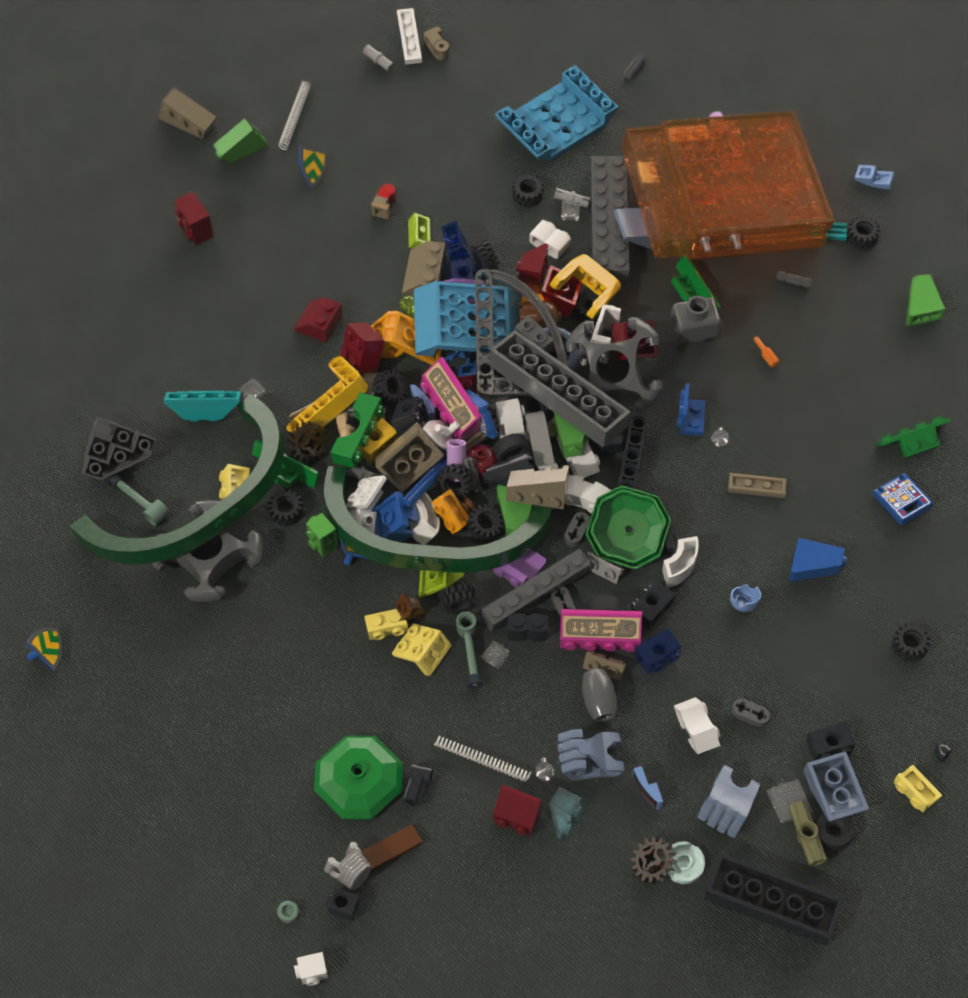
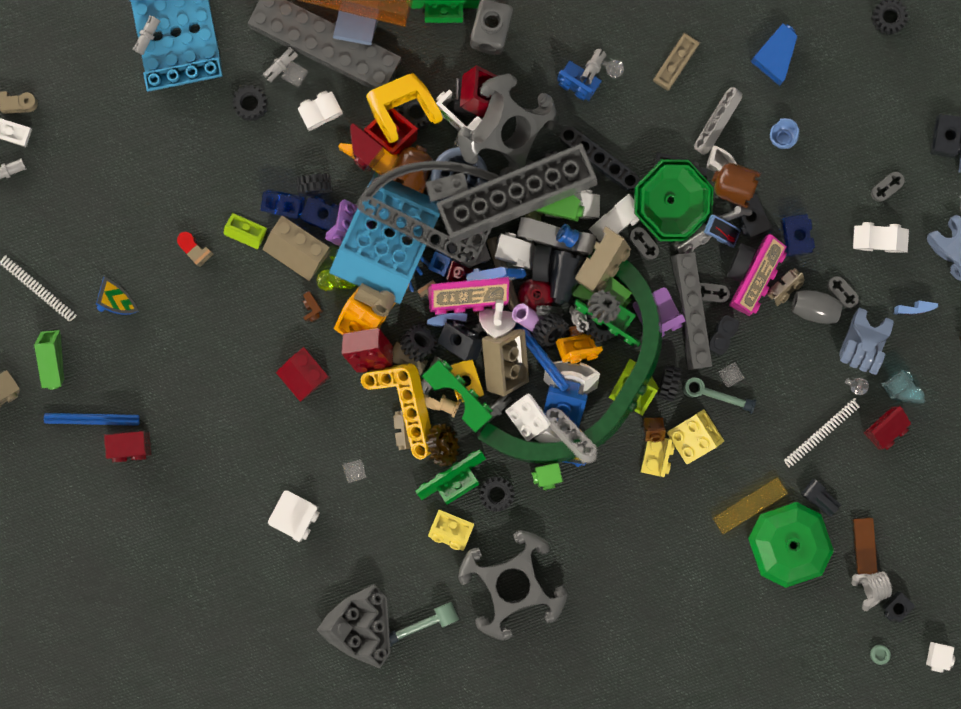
camera: 70 degrees left, 25 degrees up
(190, 363) = (294, 516): none -> white bracket
(202, 404) = (348, 522): teal wedge -> none
(205, 192) = (94, 419): none -> blue axle
(212, 521) = (497, 560): dark green arch -> none
(364, 522) = (574, 433): none -> light grey beam
(379, 725) = (750, 505): none -> clear yellow tile
(381, 301) = (311, 303): none -> reddish brown bracket
(408, 332) = (380, 301): none -> dark tan piece
(478, 498) = (578, 319): none -> light grey pin
(494, 517) = (617, 326): none -> green bracket
(496, 501) = (604, 306): none -> dark grey gear
(540, 97) = (146, 35): none -> light grey pin
(546, 452) = (567, 235): none -> blue wheel
(625, 583) = (722, 231): none -> slope
(631, 719) = (844, 286): none -> dark grey beam
(648, 582) = (739, 211): none -> flat silver piece
(671, 563) = (735, 183): none -> reddish brown cylinder
(710, 417) = (593, 66): none -> light grey pin
(721, 538) = (718, 120): none -> light grey beam

